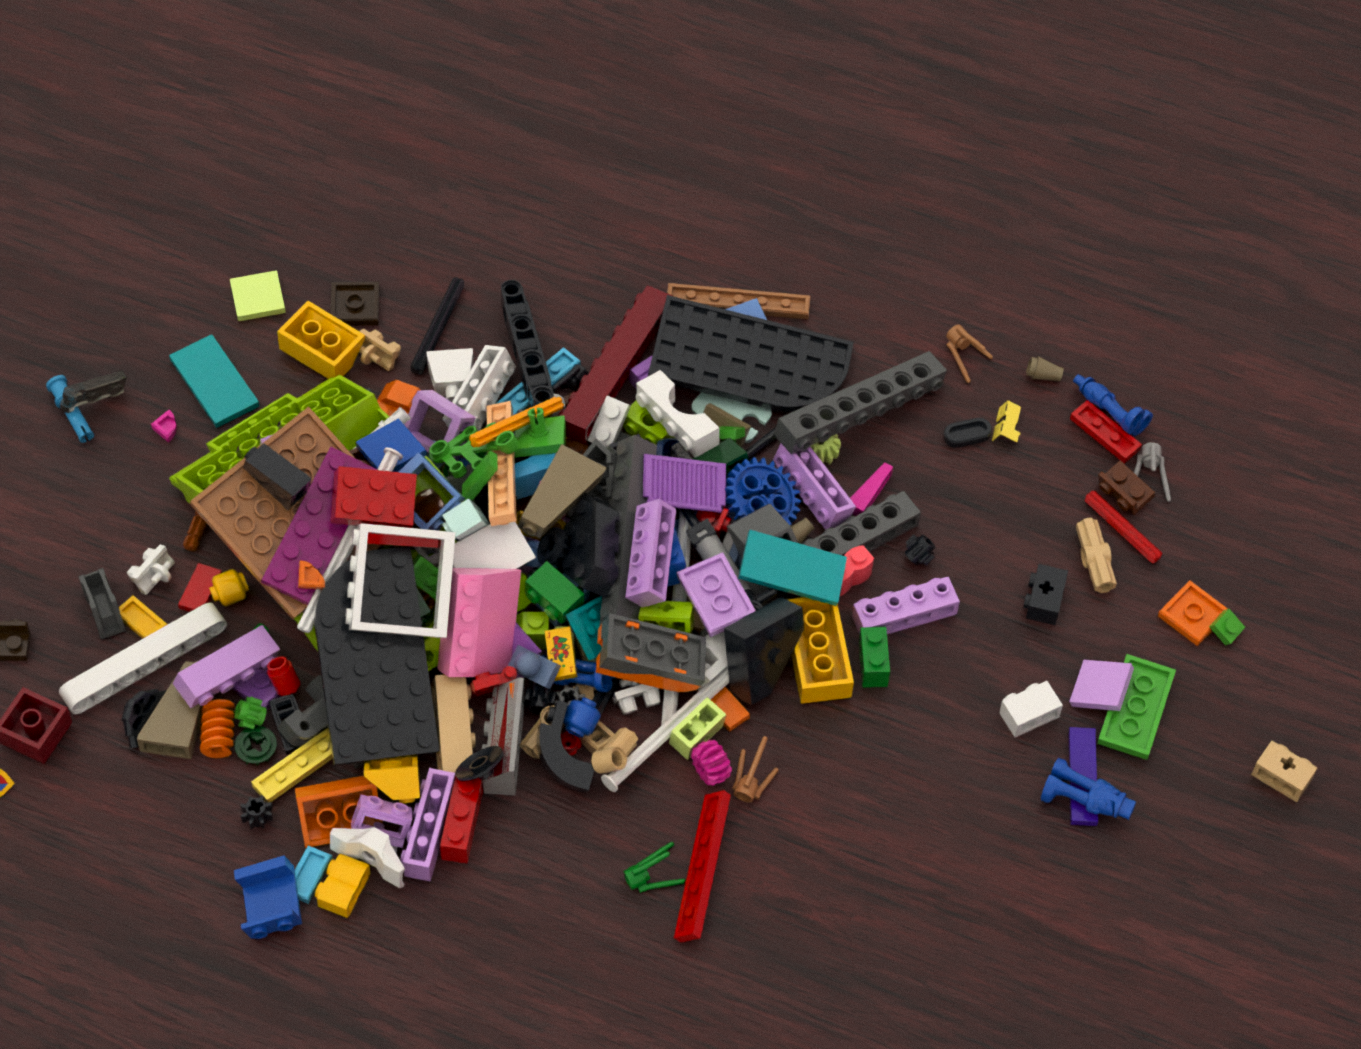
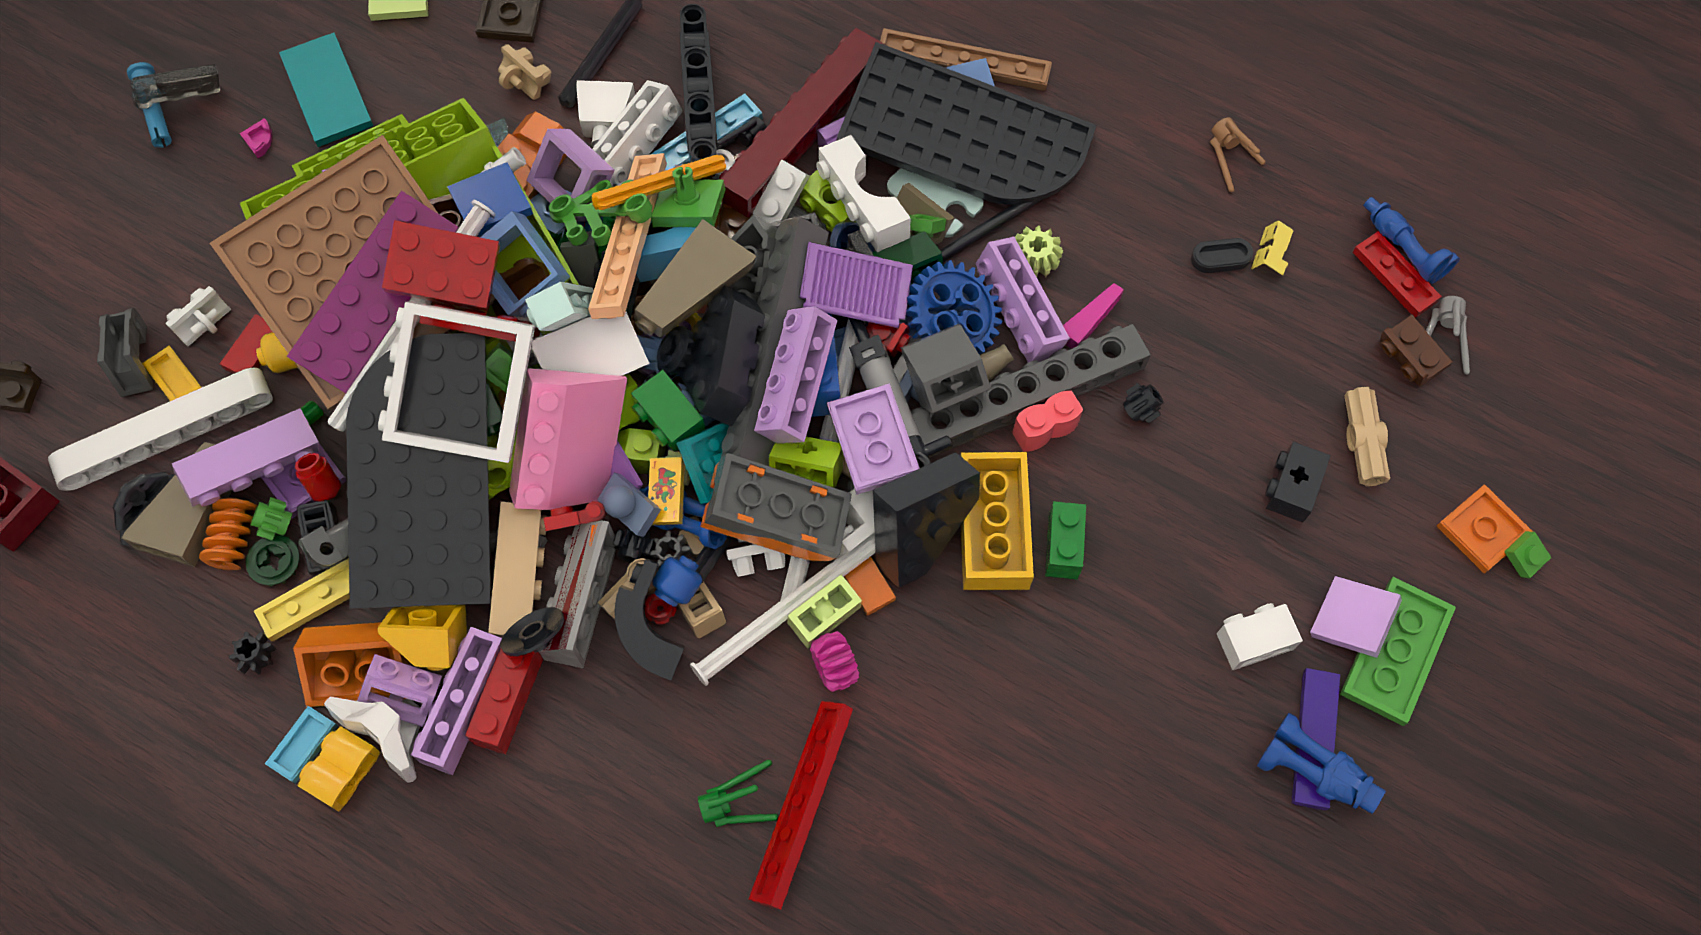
camera: 10 degrees right, 10 degrees up
(269, 897) = (244, 775): blue panel -> none
(277, 475) = (321, 222): black slope -> none
(309, 576) = (347, 360): orange tile -> none
(320, 341) = (455, 54): yellow slope -> none
(480, 476) = (596, 249): bright green tile -> none
(615, 753) = (708, 639): tan piece -> none
(746, 787) = (877, 698): medium nougat plant -> none
(792, 567) = (976, 414): teal tile -> none
(860, 402) = (1092, 204): dark grey brick -> none
(908, 606) = (1117, 477): lavender brick -> none
(1043, 370) = (1326, 185): dark tan cone -> none
(1123, 527) = (1405, 402): red axle -> none
(1272, 766) = (1588, 768): tan brick -> none

